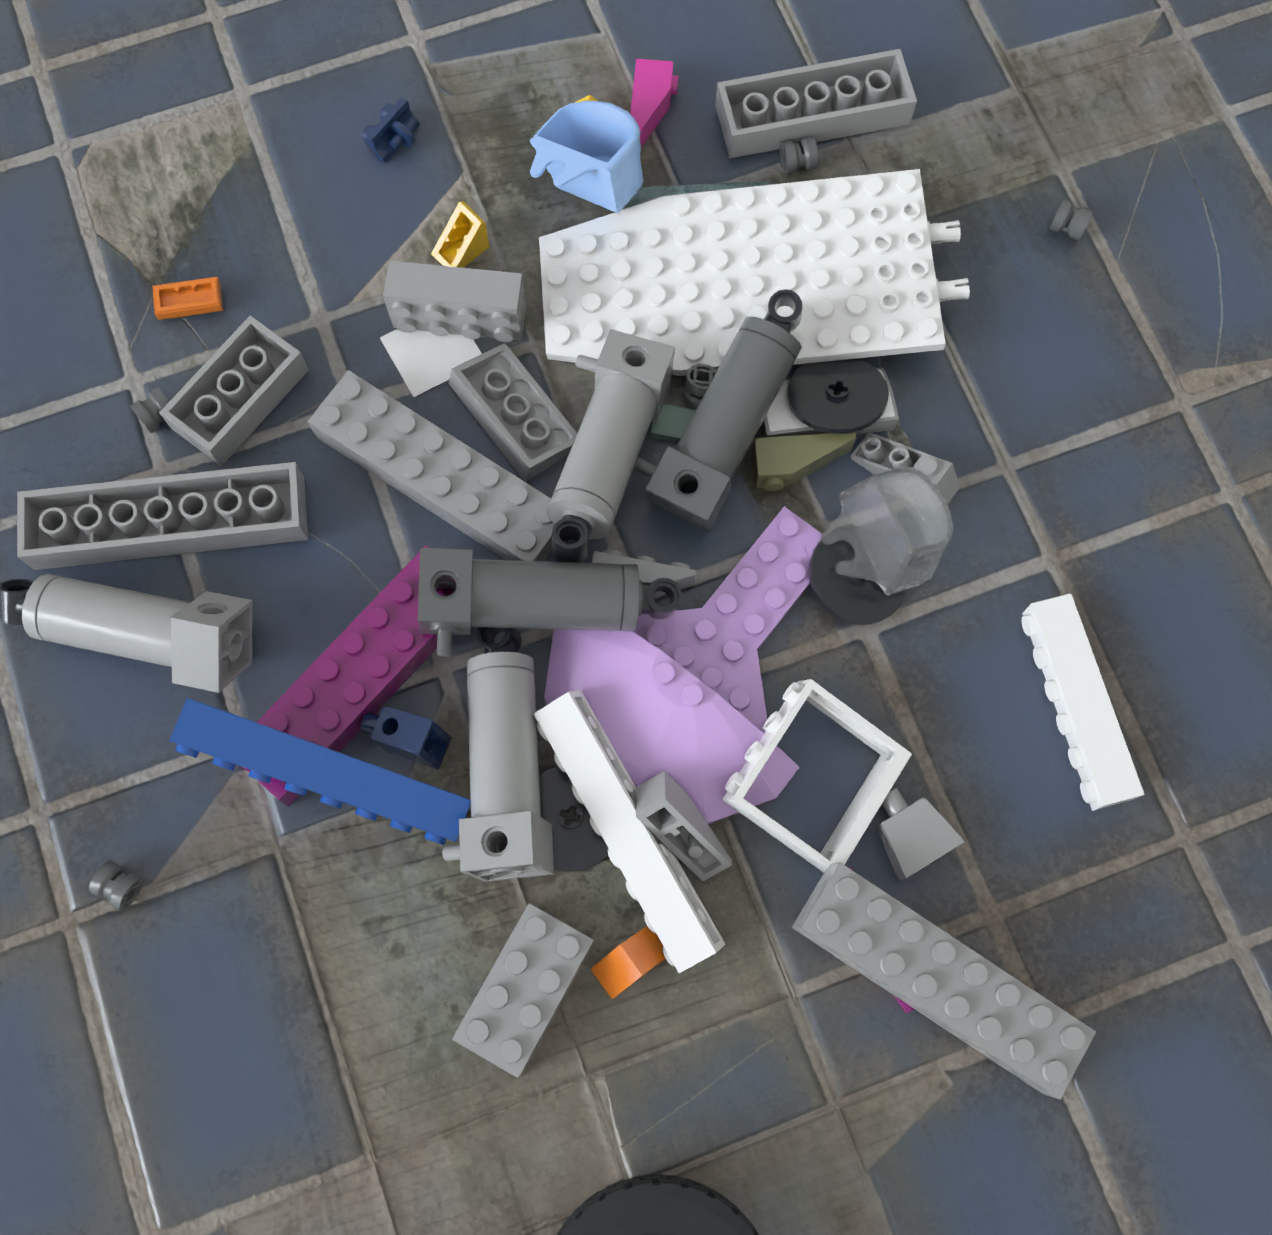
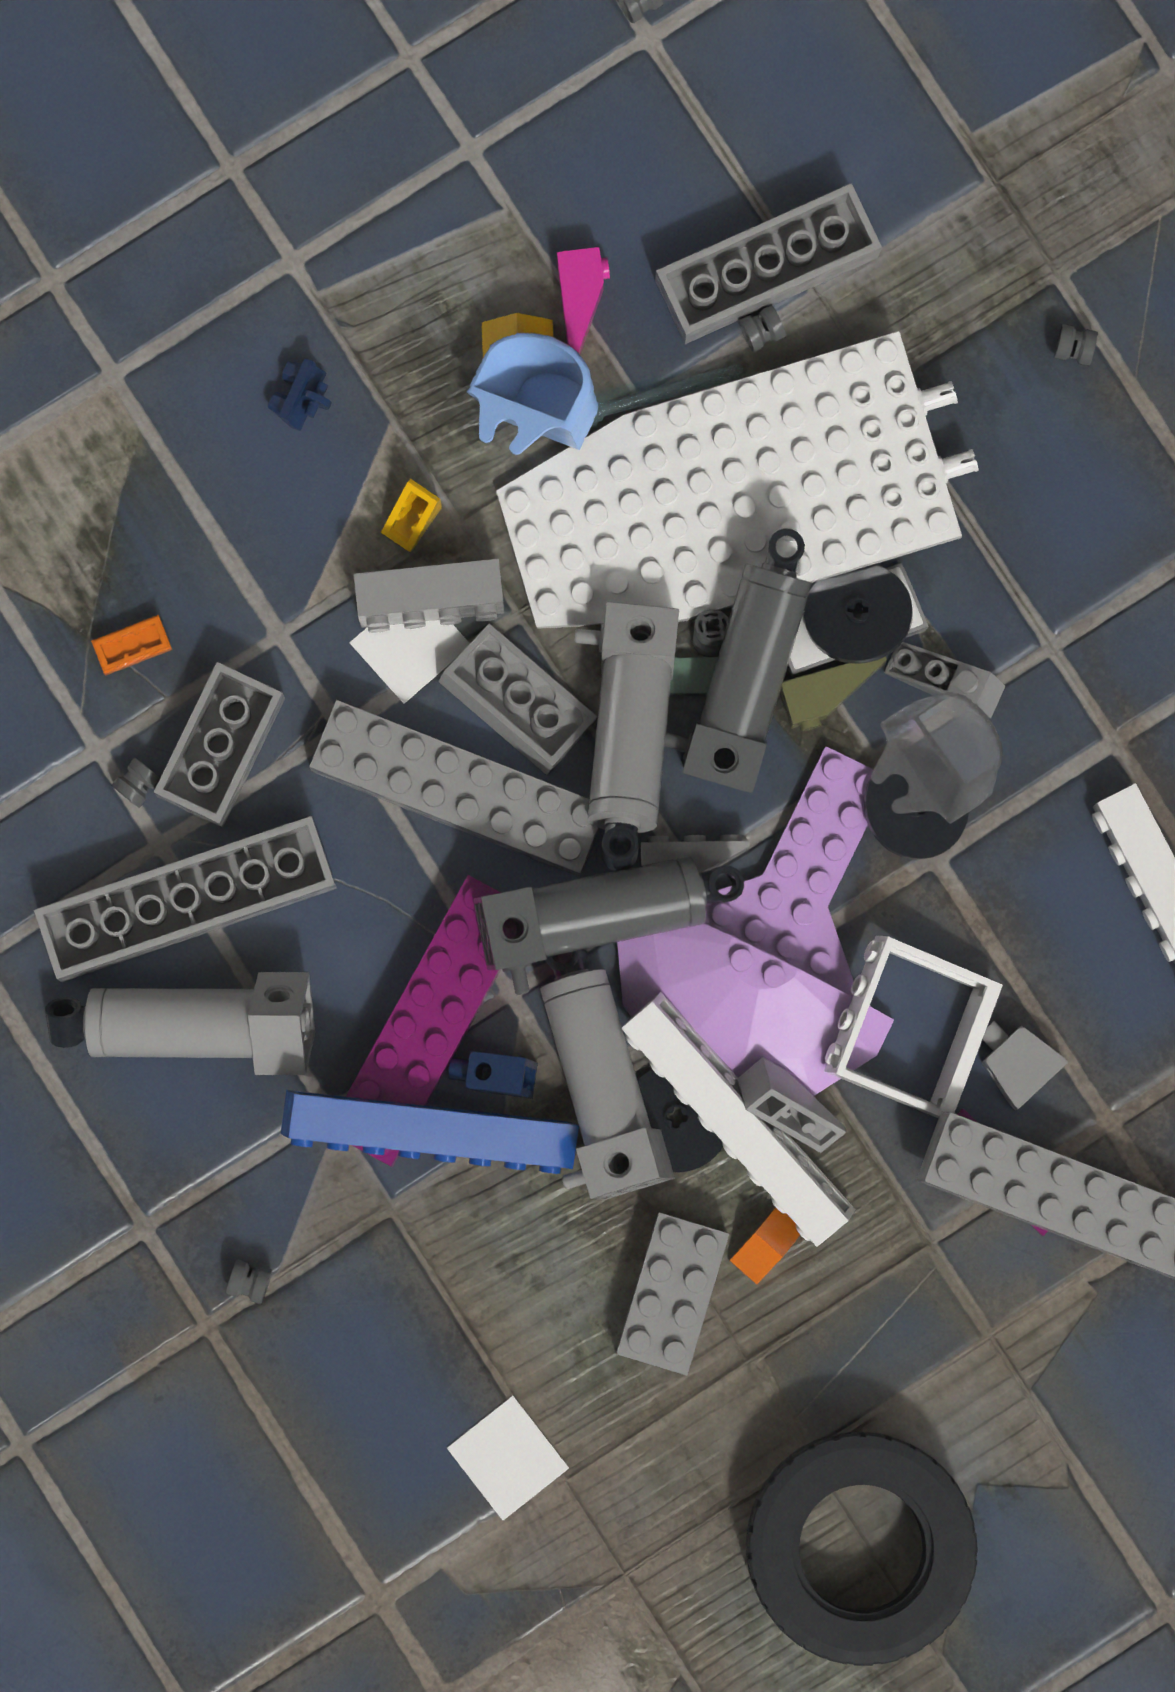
camera: 15 degrees left, 10 degrees up
(322, 1124) = (507, 1458): none -> white sticker

